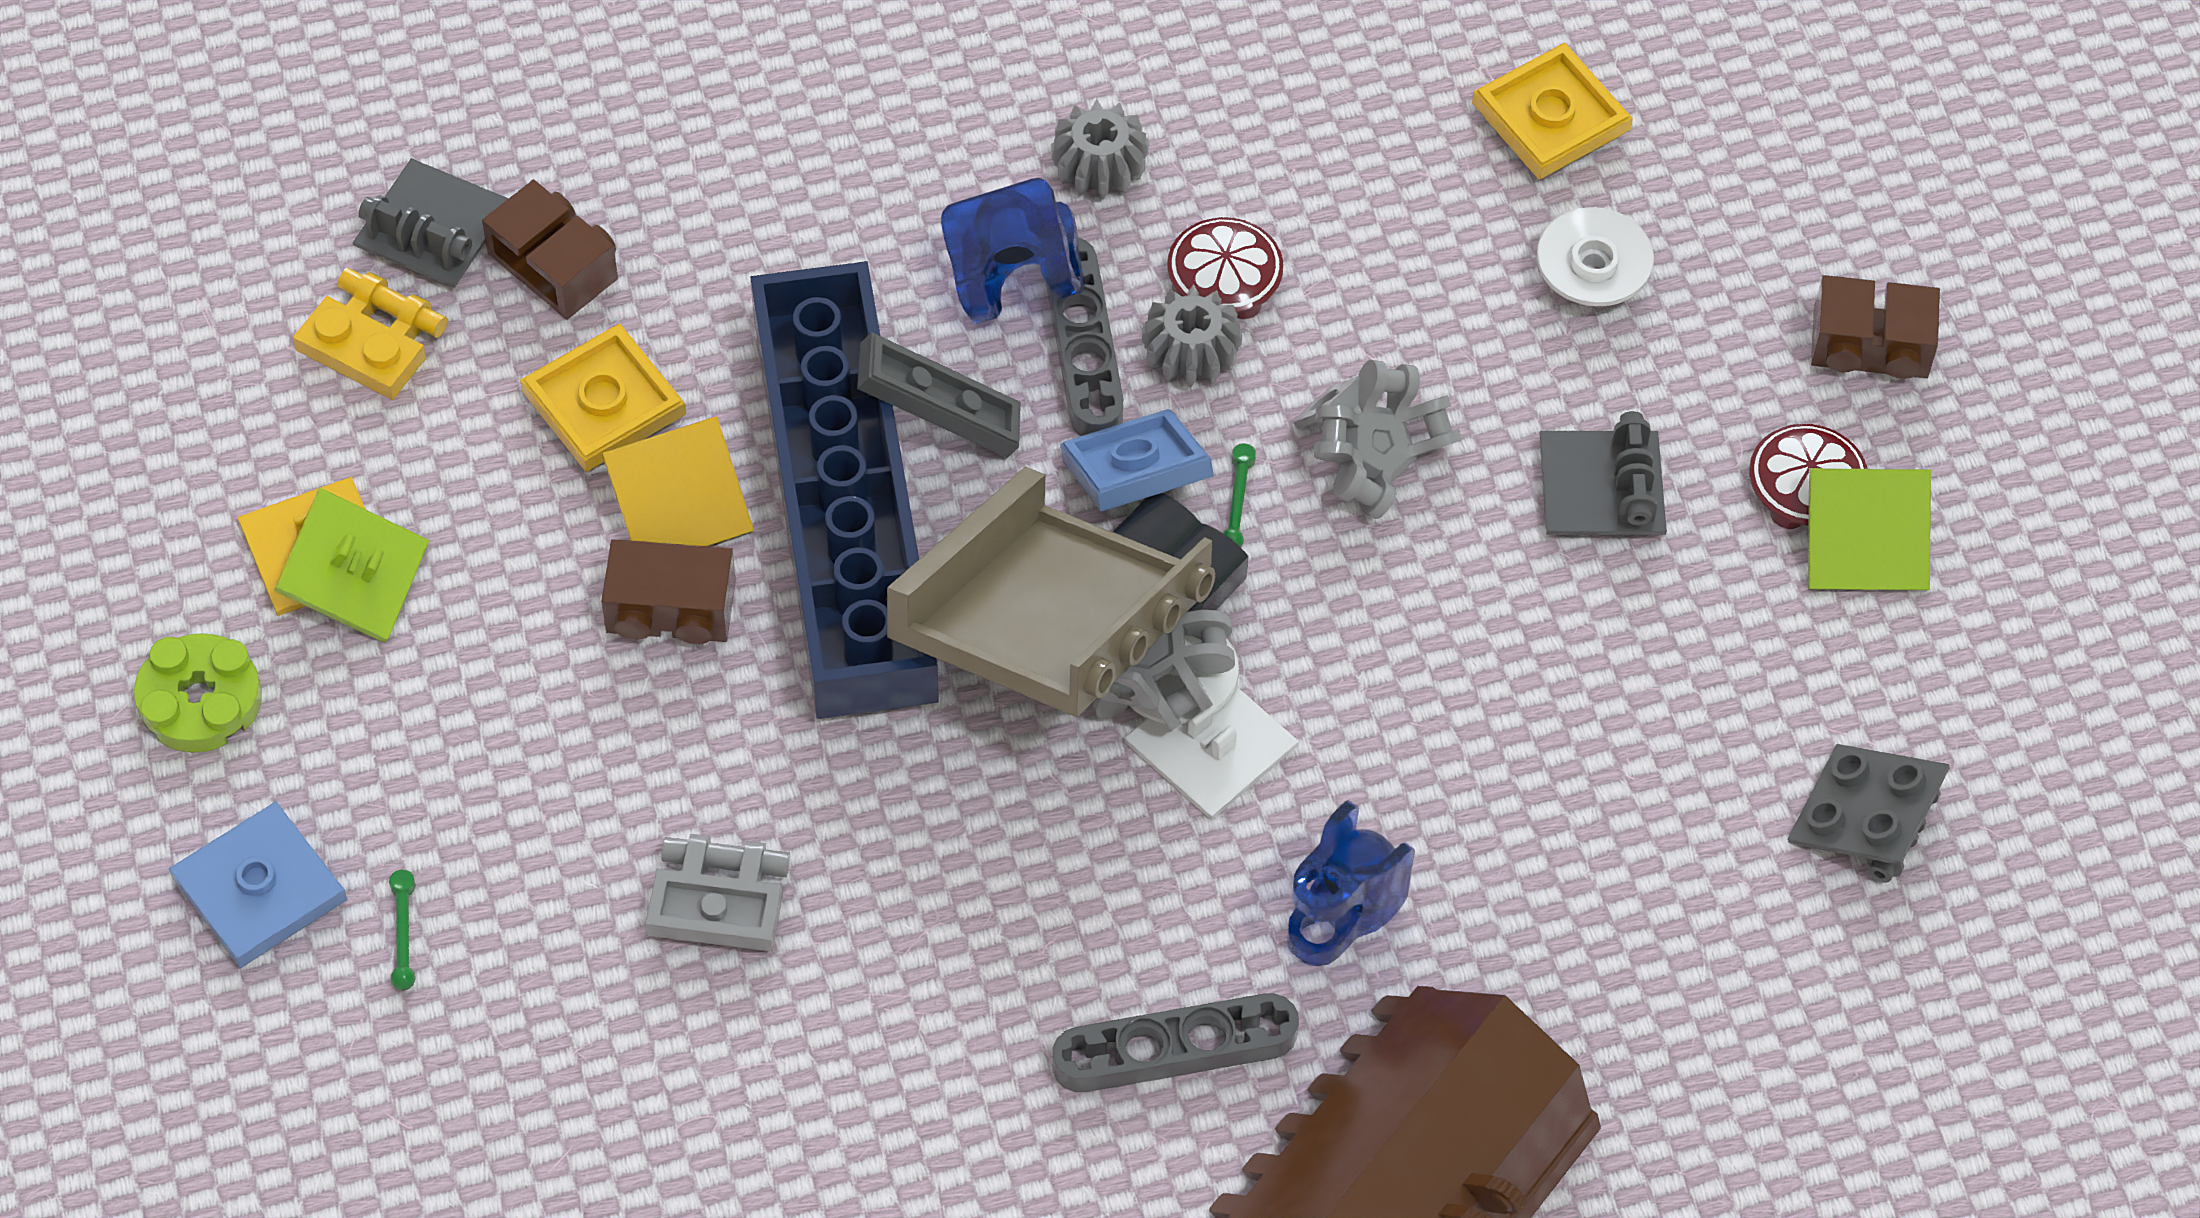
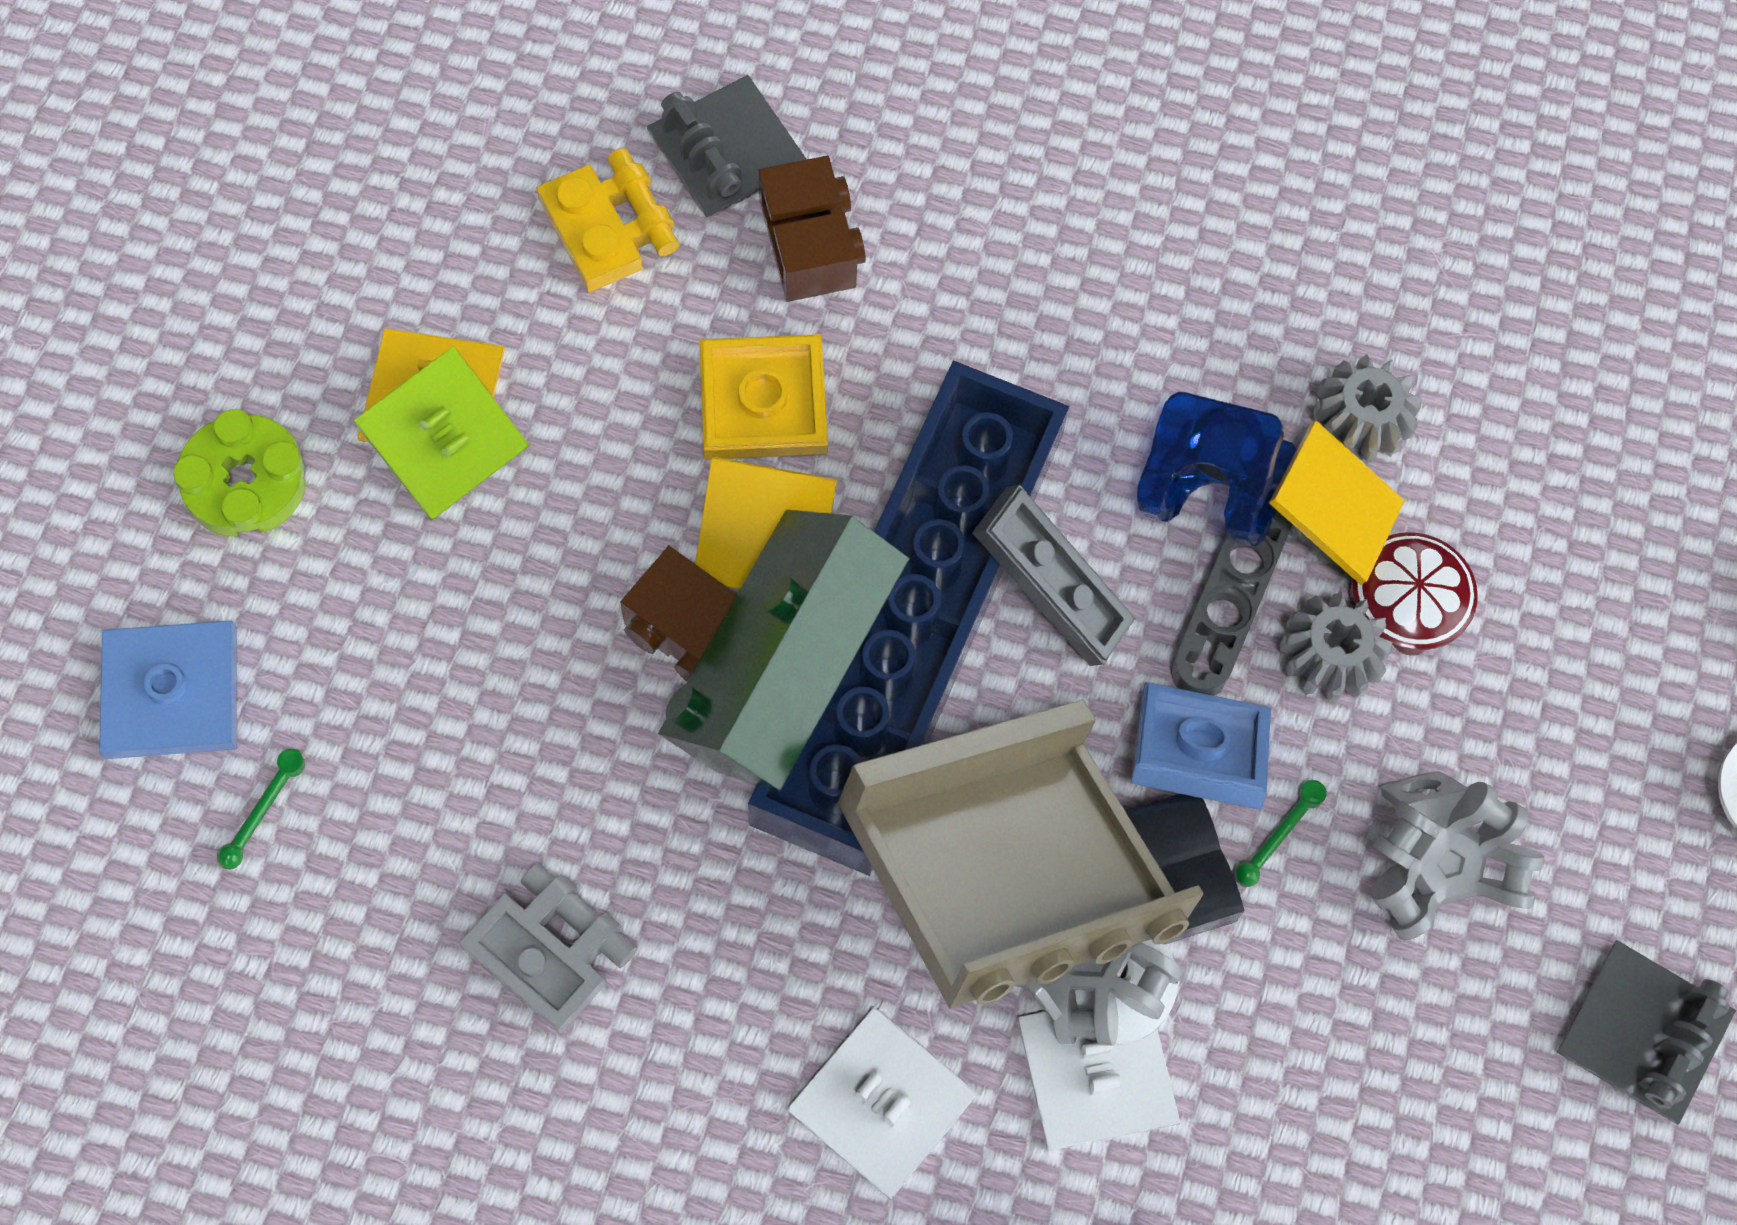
camera: 30 degrees right, 10 degrees up
(765, 550) = (783, 646): none -> brick
(1060, 858) = (882, 1103): none -> white piece
(1123, 227) = (1337, 502): none -> yellow piece

